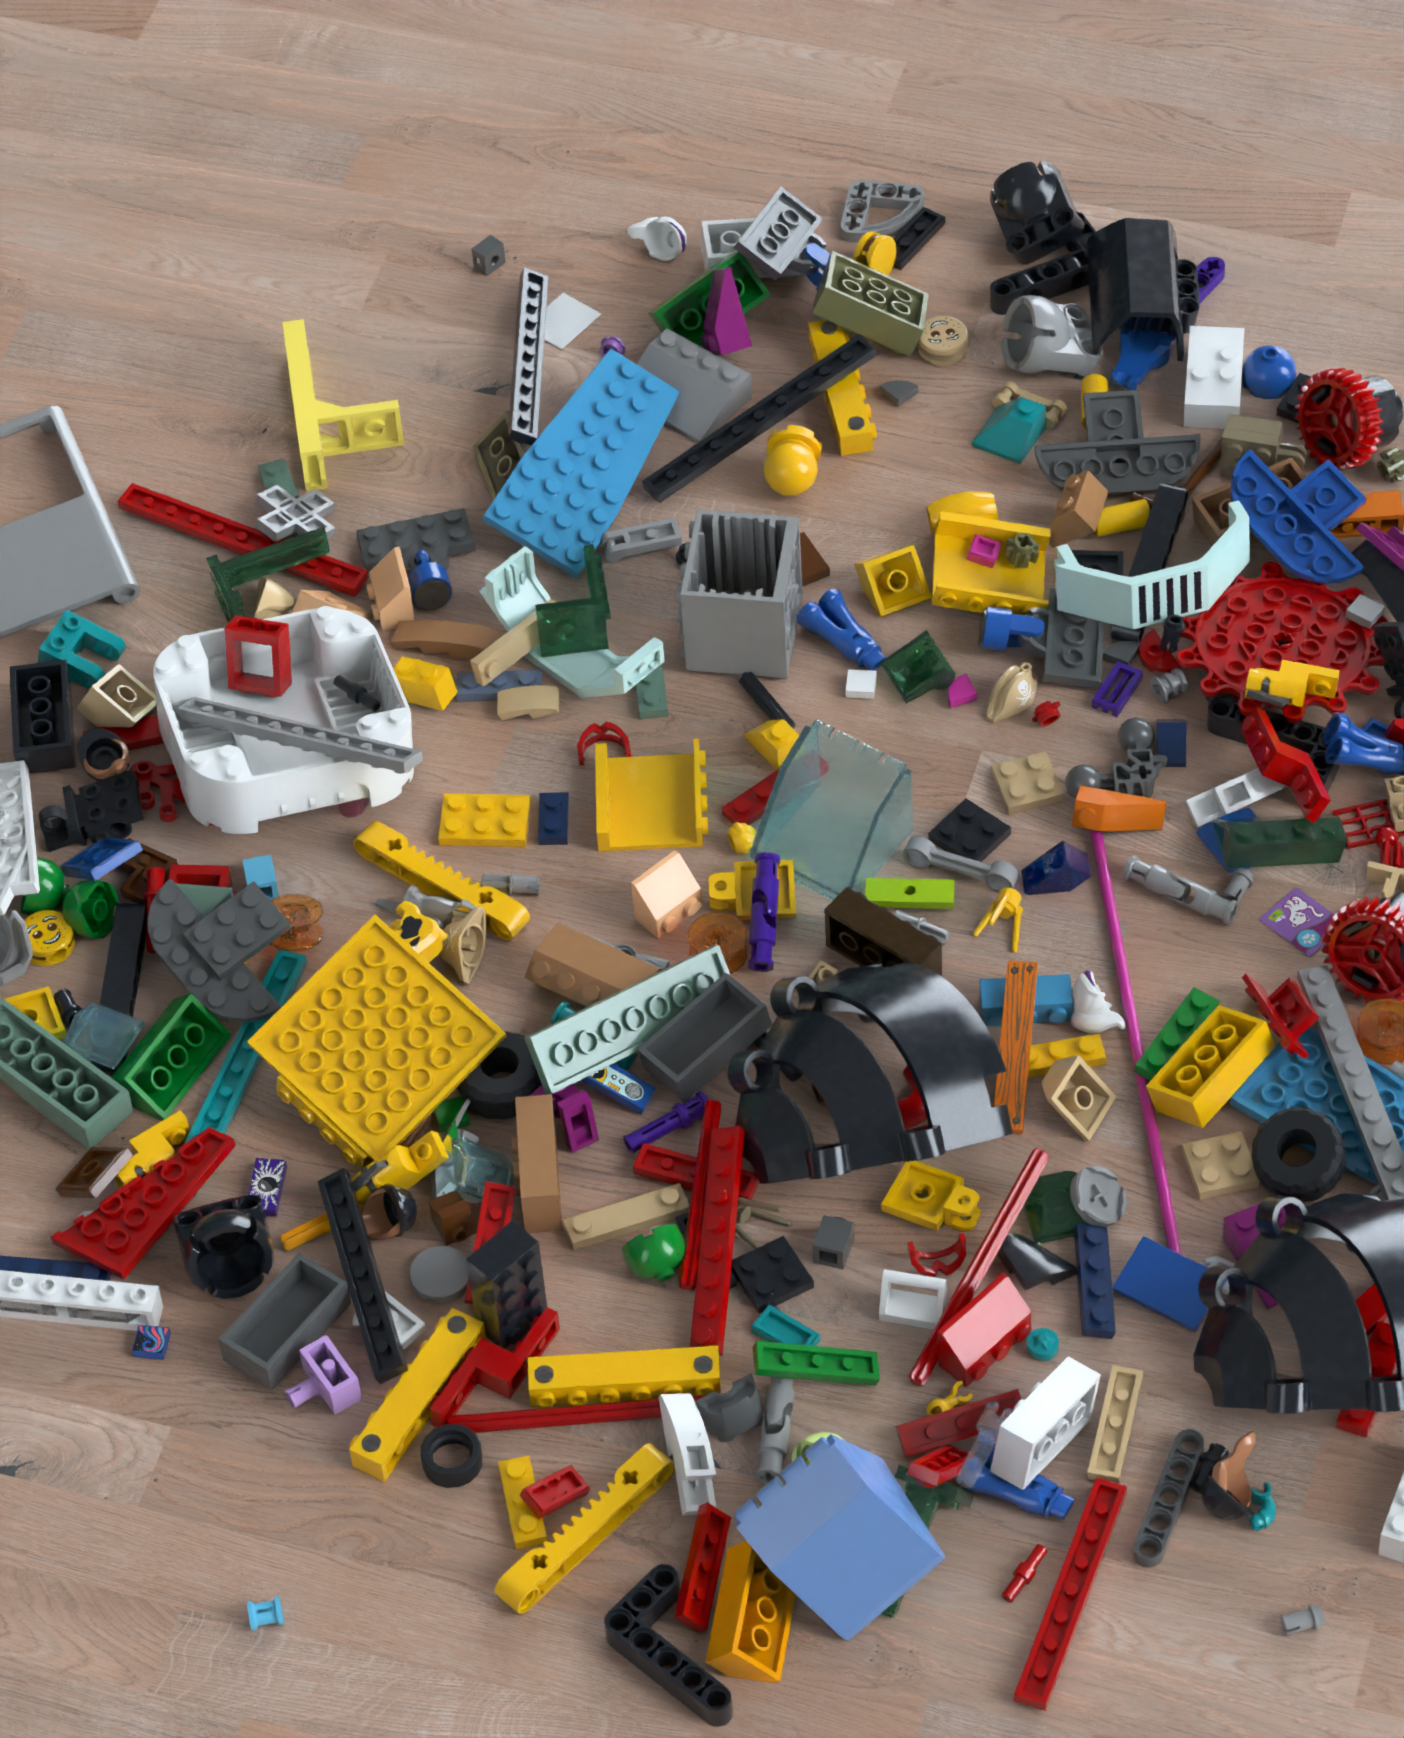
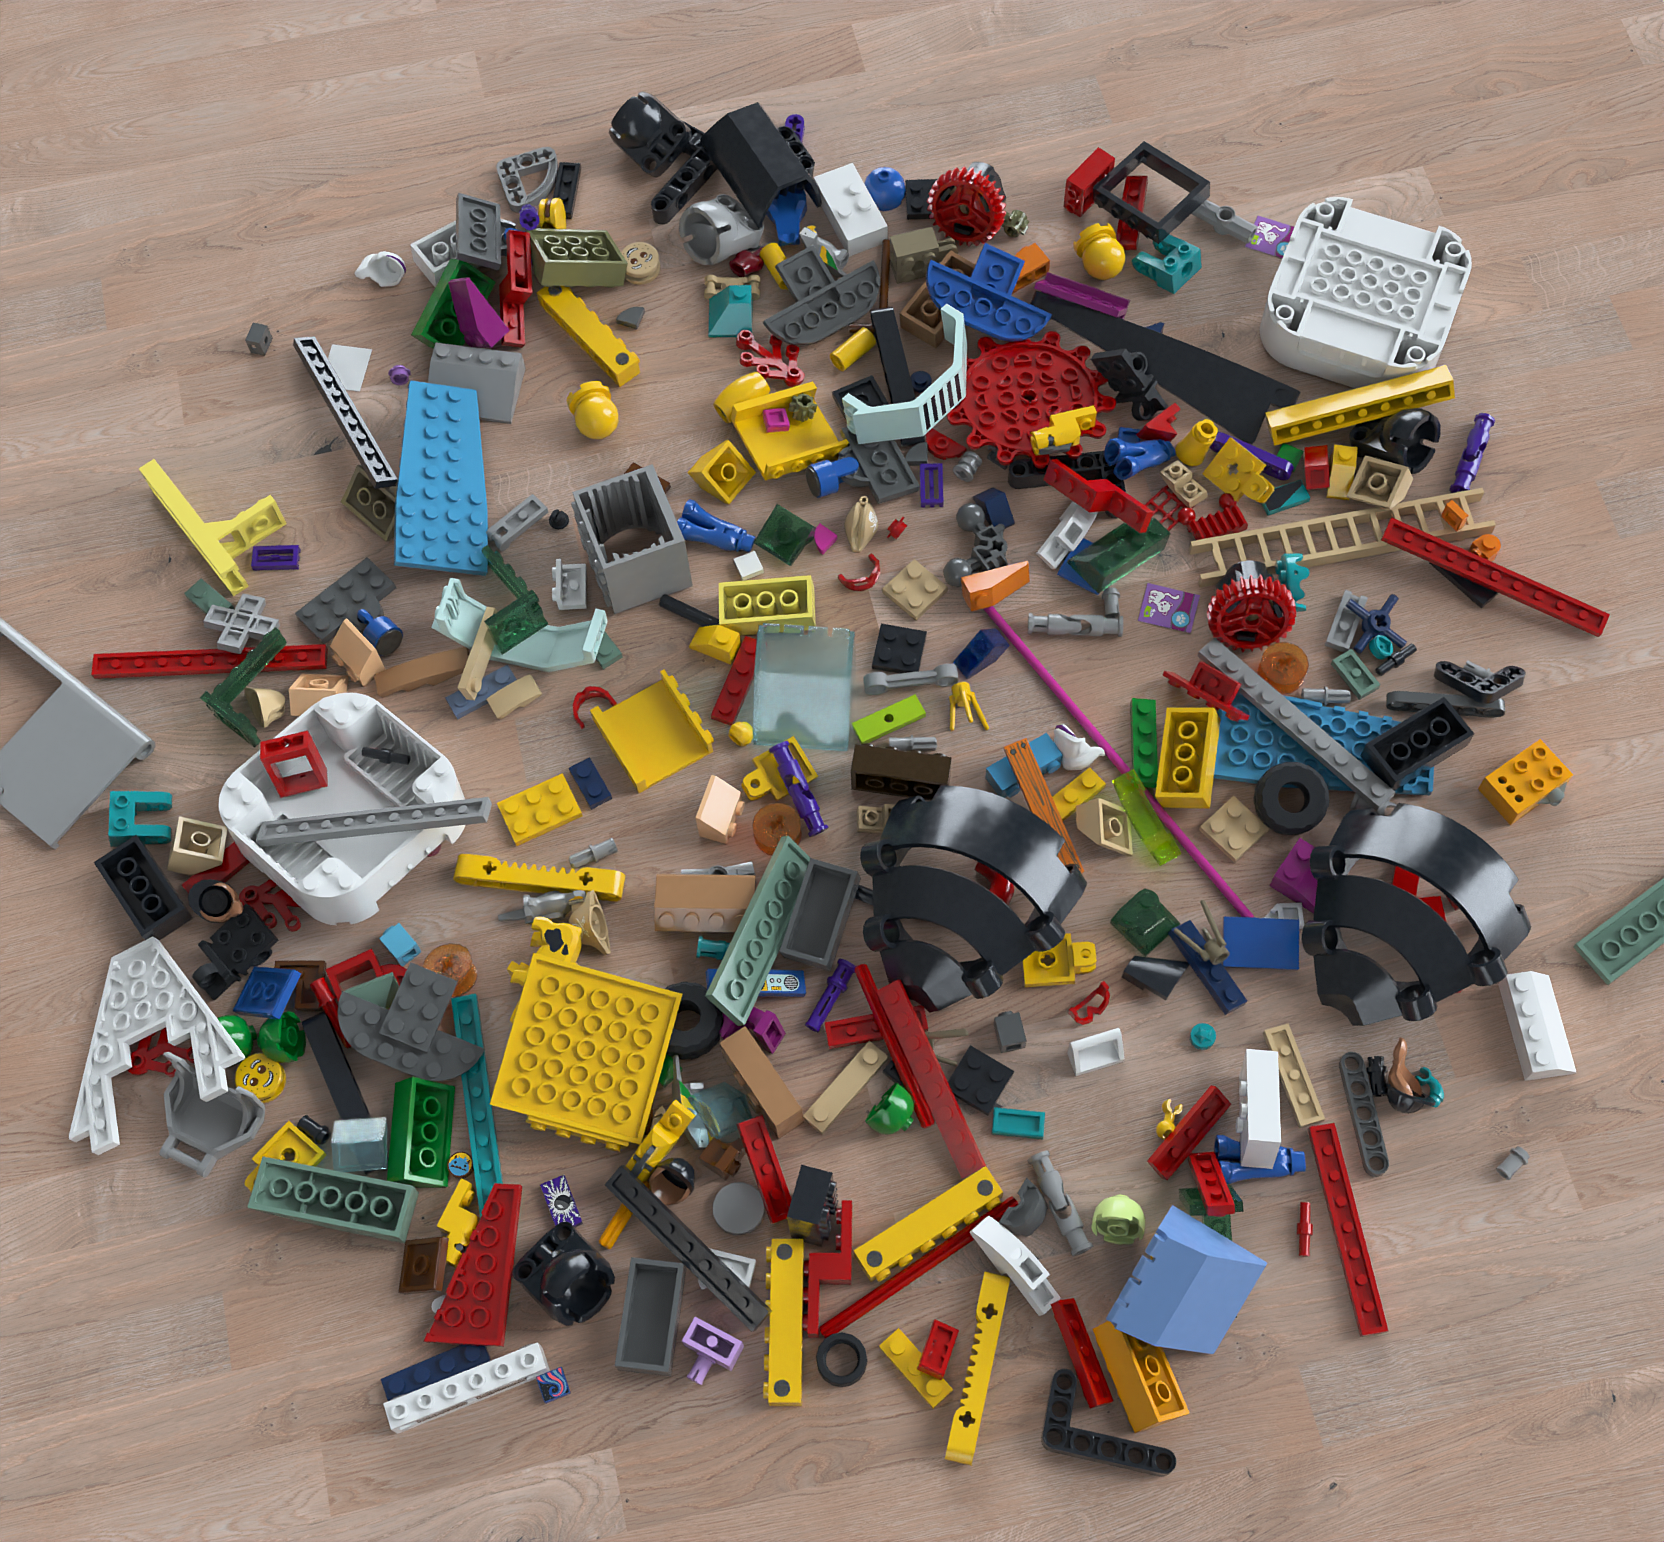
camera: 30 degrees left, 15 degrees up
(190, 1104) = (460, 1165): none -> tile
(368, 474) = (275, 562): none -> dark purple tile
(425, 683) = (429, 718): yellow brick -> none
(653, 619) = (570, 585): none -> white bracket
(759, 418) = (548, 386): black plate -> none
(785, 308) = (516, 287): none -> red bracket
(816, 1363) = (1063, 1142): green plate -> none
(840, 240) = (528, 217): none -> dark purple piece
(864, 718) = (773, 600): none -> light yellow brick
(959, 744) = (871, 580): none -> red helmet
(982, 1260) = (1128, 1002): red axle -> none
(983, 1331) = (1165, 1053): slope -> none
(988, 1430) = (1226, 1132): clear piece -> none
(1032, 515) = (790, 374): none -> red plant
(1061, 386) = (746, 263): none -> dark red piece
(1078, 508) = (824, 357): medium nougat slope -> none
(1098, 1196) = (1172, 900): light grey tile -> none
(1109, 1258) = (1215, 947): none -> dark tan plant
(1125, 1105) = (1144, 819): none -> clear neon green slope
(1155, 410) = (833, 258): none -> light grey animal
(1173, 626) = (950, 421): black pin -> none
(1365, 611) = (1071, 348): light grey tile -> none

